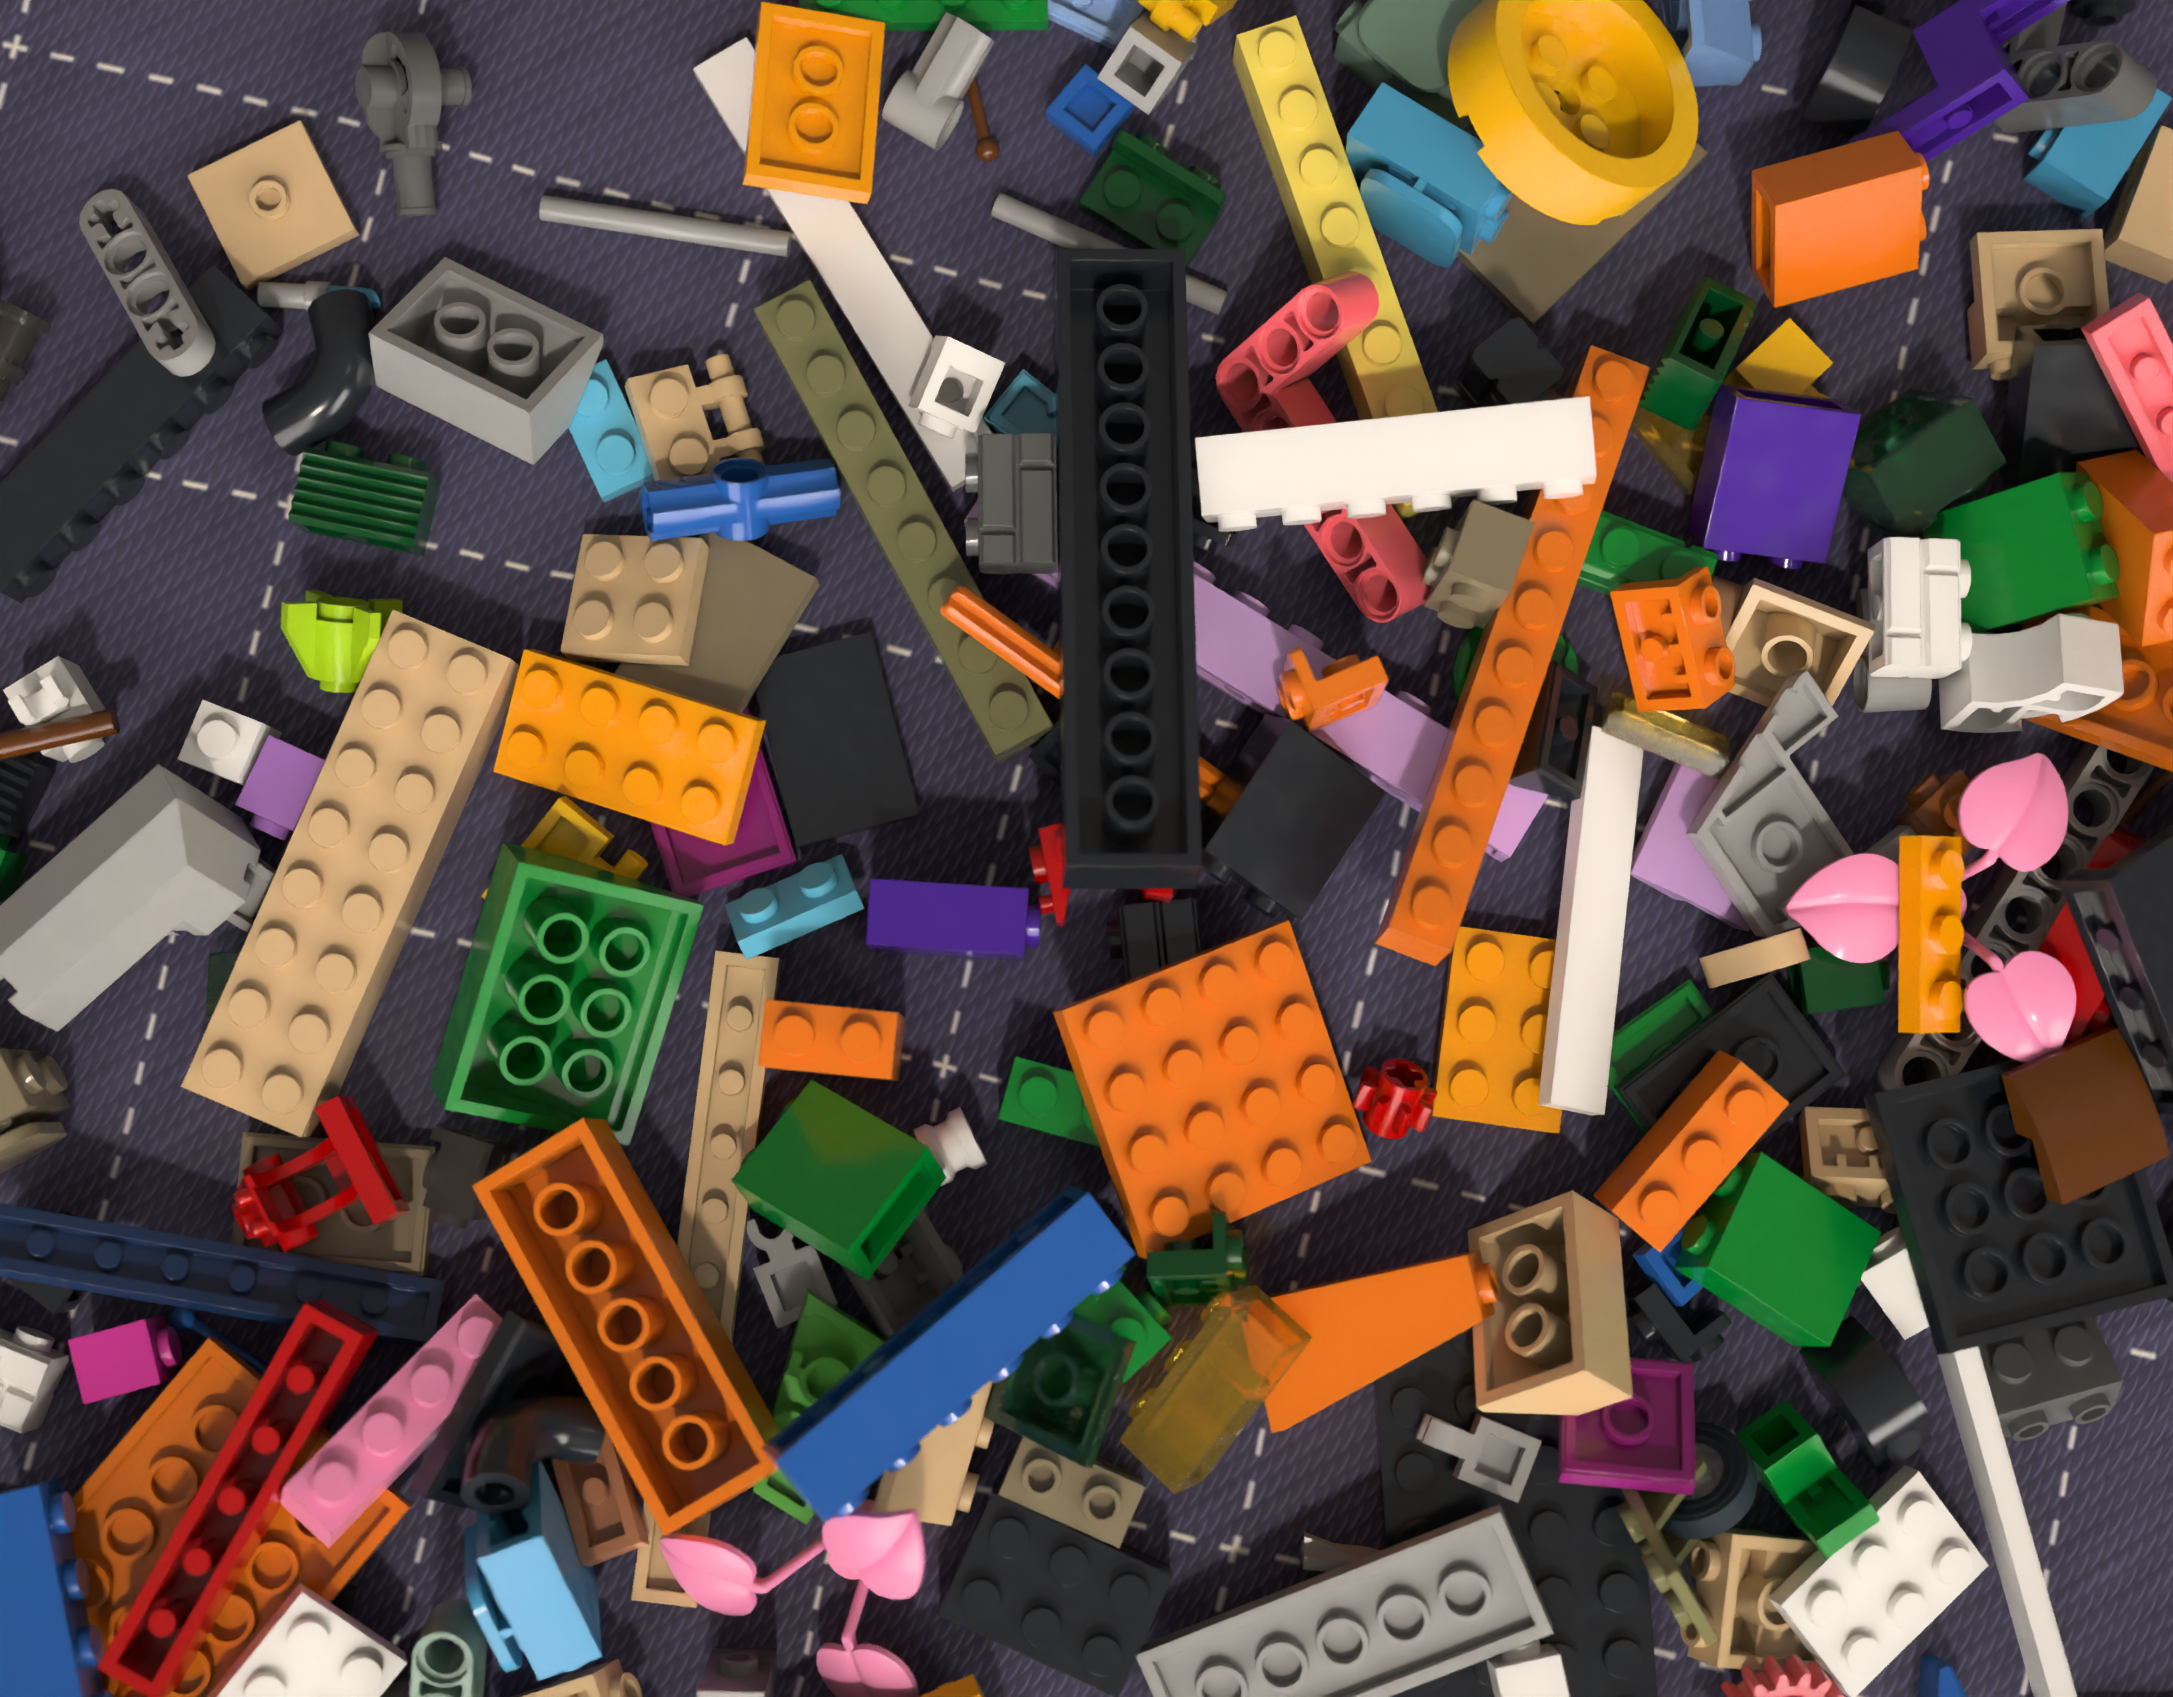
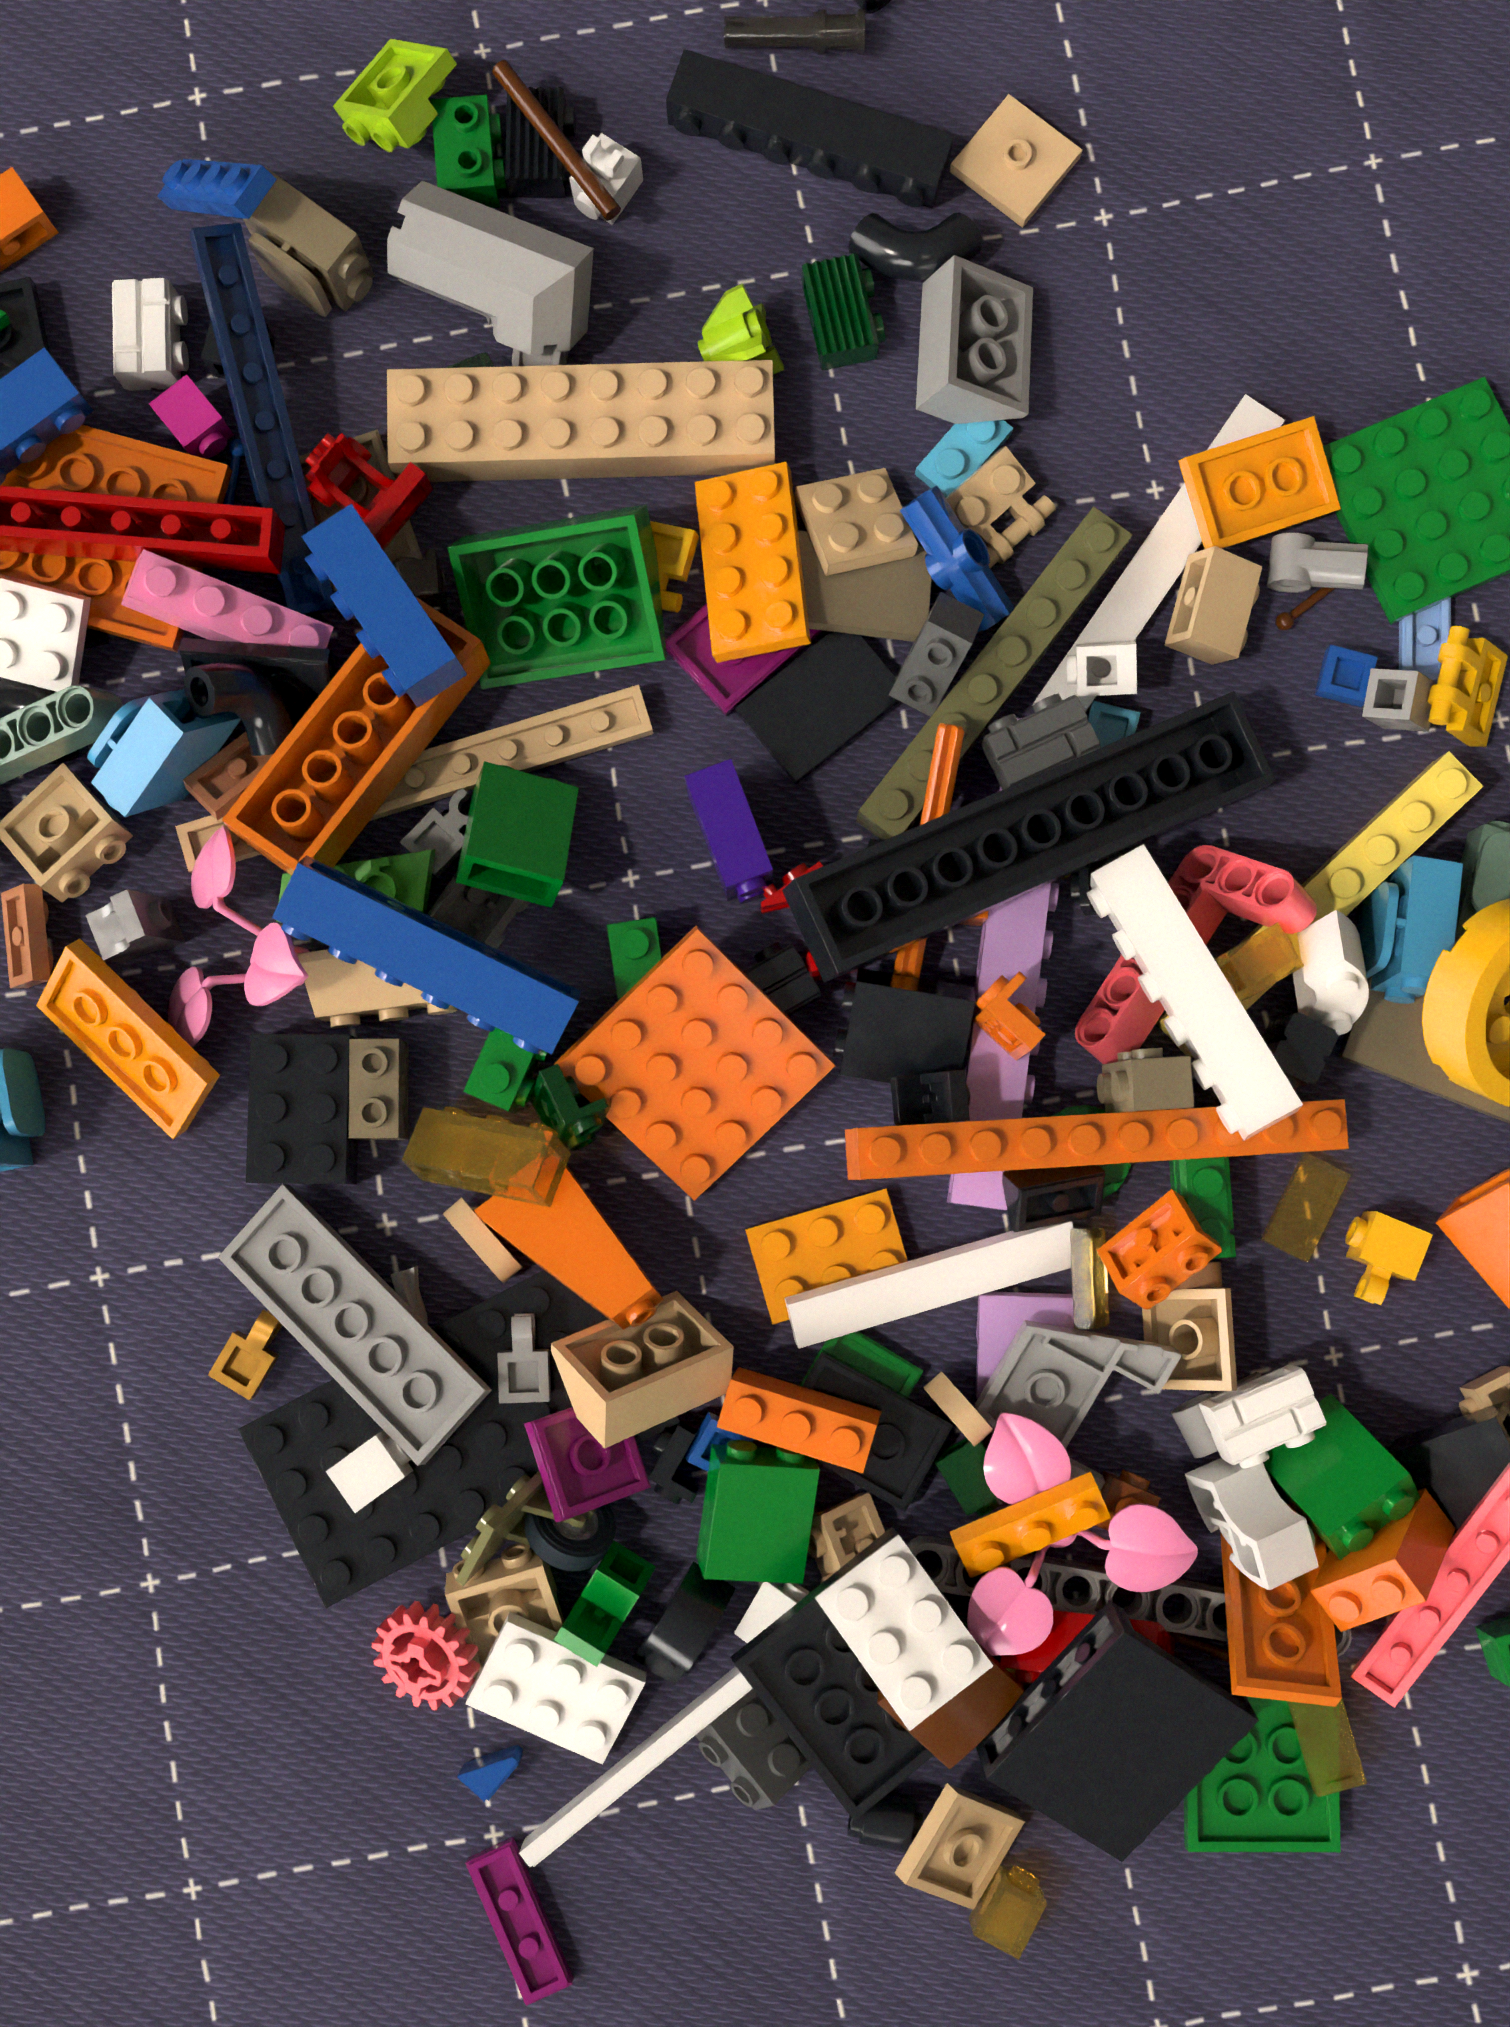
camera: 75 degrees right, 0 degrees up
(146, 281) = (916, 94): light grey beam -> none
(225, 742) = (632, 299): white brick -> none
(279, 787) = (619, 342): medium lavender brick -> none
(301, 295) = (960, 203): light grey piece -> none
(402, 105) = (1124, 207): dark grey pin -> none
(488, 1219) = (383, 605): none -> blue brick
(665, 226) = (1126, 427): light grey bar -> none
(794, 906) = (692, 723): medium azure plate -> none
(832, 1040) = (609, 787): orange brick -> none
(848, 576) = (936, 654): none -> dark grey brick
(935, 224) = (1214, 605): none -> tan brick
(952, 1144) = (576, 904): white wheel -> none
(1065, 1389) = (439, 1049): clear green slope -> none
(1072, 236) = (1251, 705): light grey bar -> none
(1153, 197) = (1304, 751): dark green bracket -> none
(1308, 1439) = (482, 1240): none -> tan beam
(1382, 824) = (930, 1098): none -> black bracket
(1393, 369) = (1259, 962): none -> clear yellow brick
(1395, 1098) = (744, 1197): red gear -> none
(1442, 292) = (1333, 978): none -> white brick
(1698, 353) = (1375, 1178): dark green brick -> none
(1772, 475) = (1311, 1271): dark purple brick -> none
(1919, 460) = (1370, 1369): clear green slope -> none
(1996, 1137) = (903, 1632): none -> white plate

